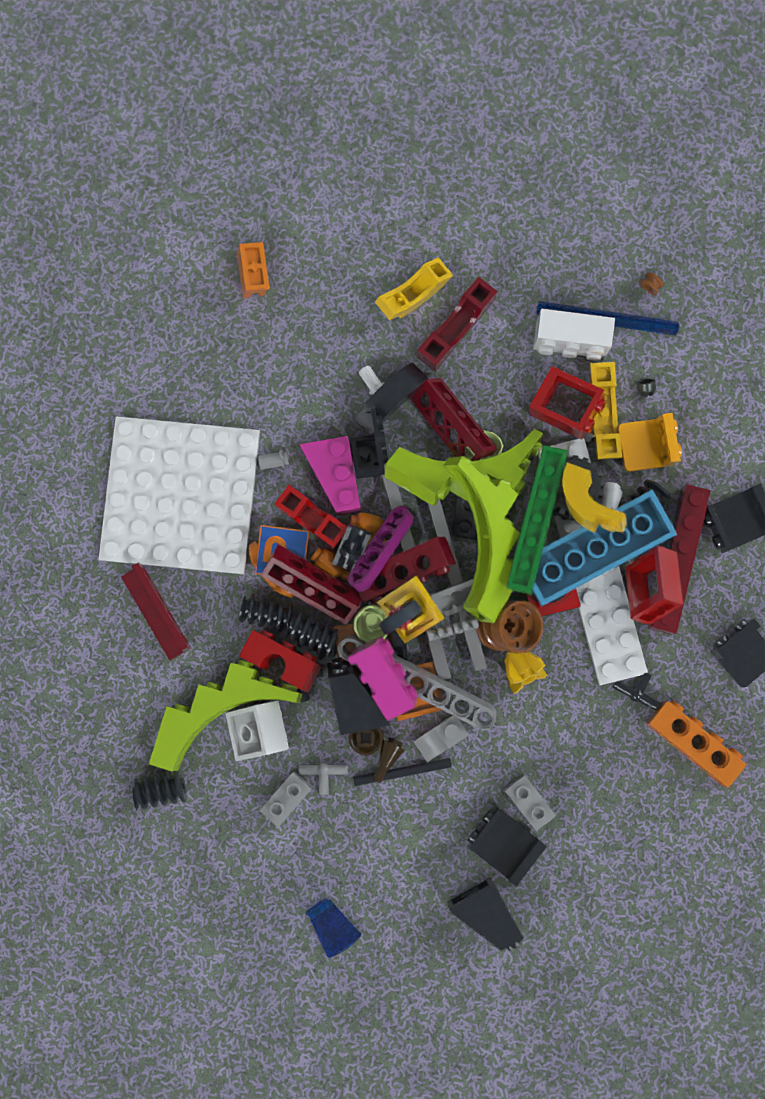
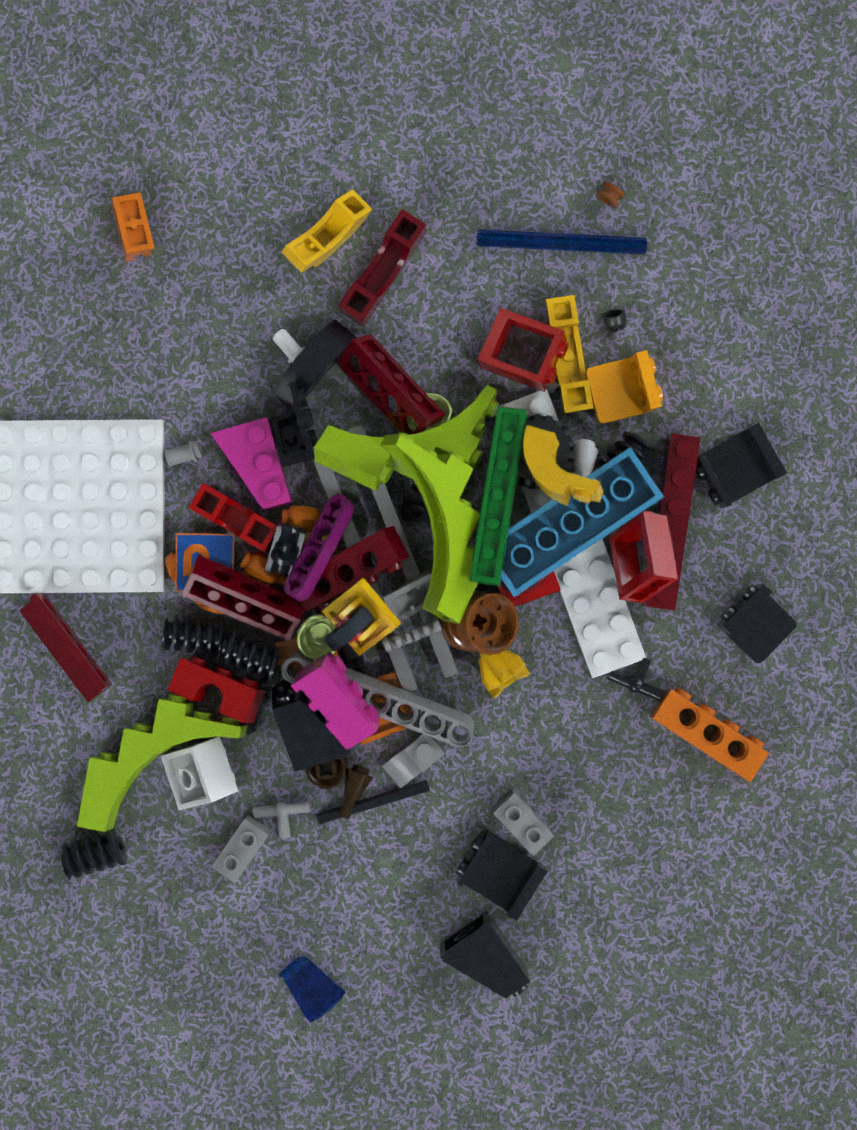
camera: 10 degrees left, 5 degrees up
(573, 334) = (522, 267): white brick -> none

